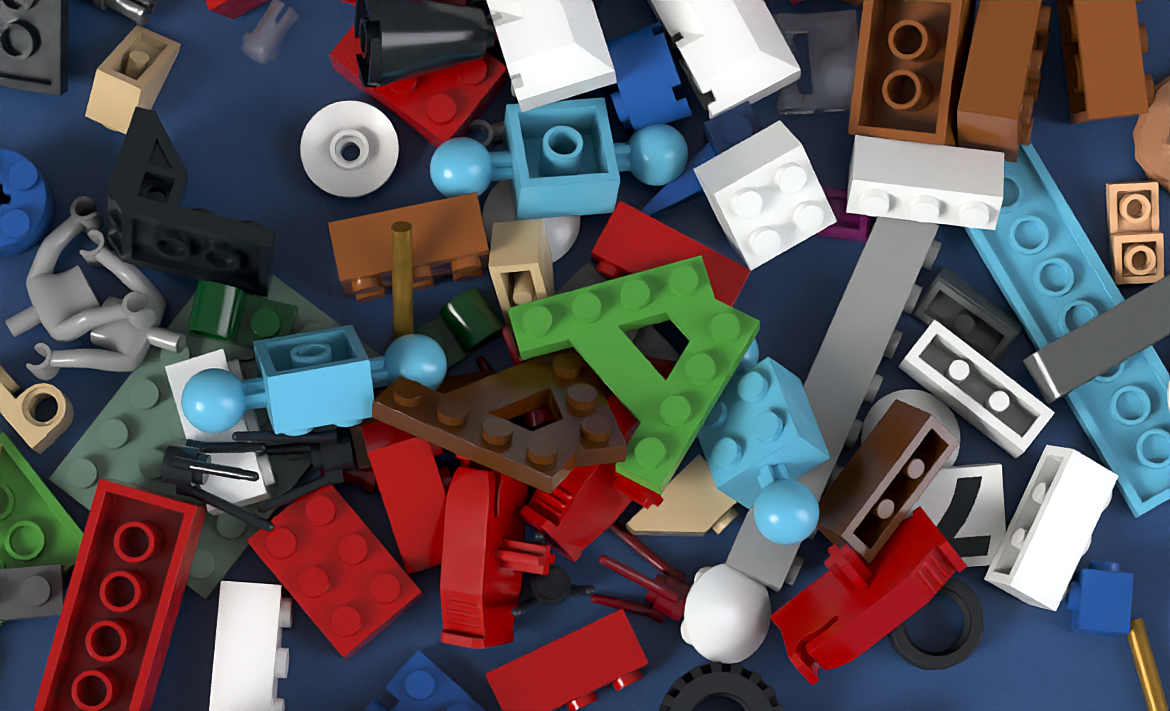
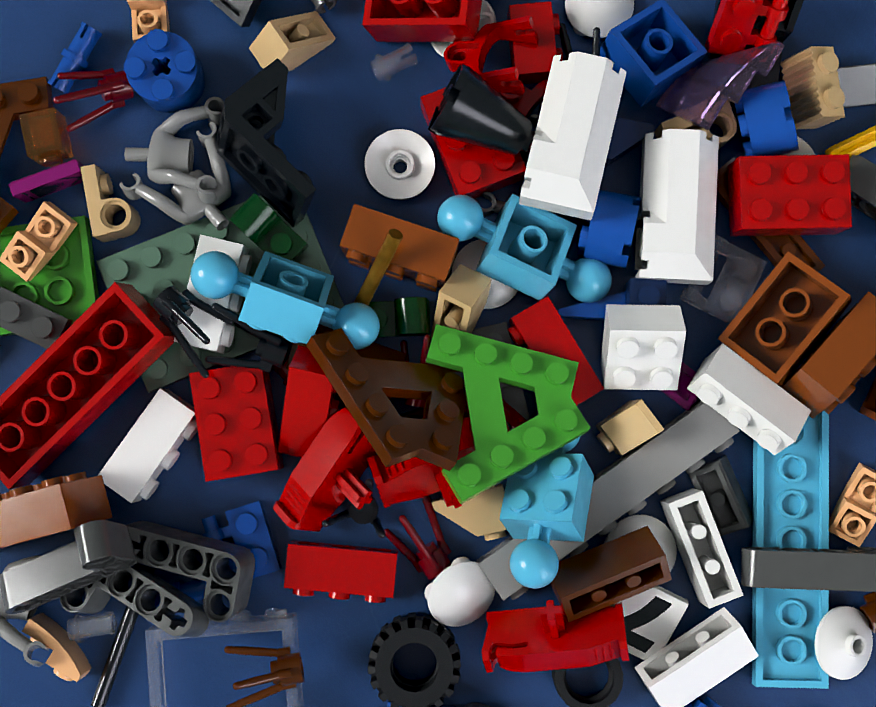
camera: 30 degrees right, 5 degrees up
(806, 300) = (628, 427): none -> tan slope

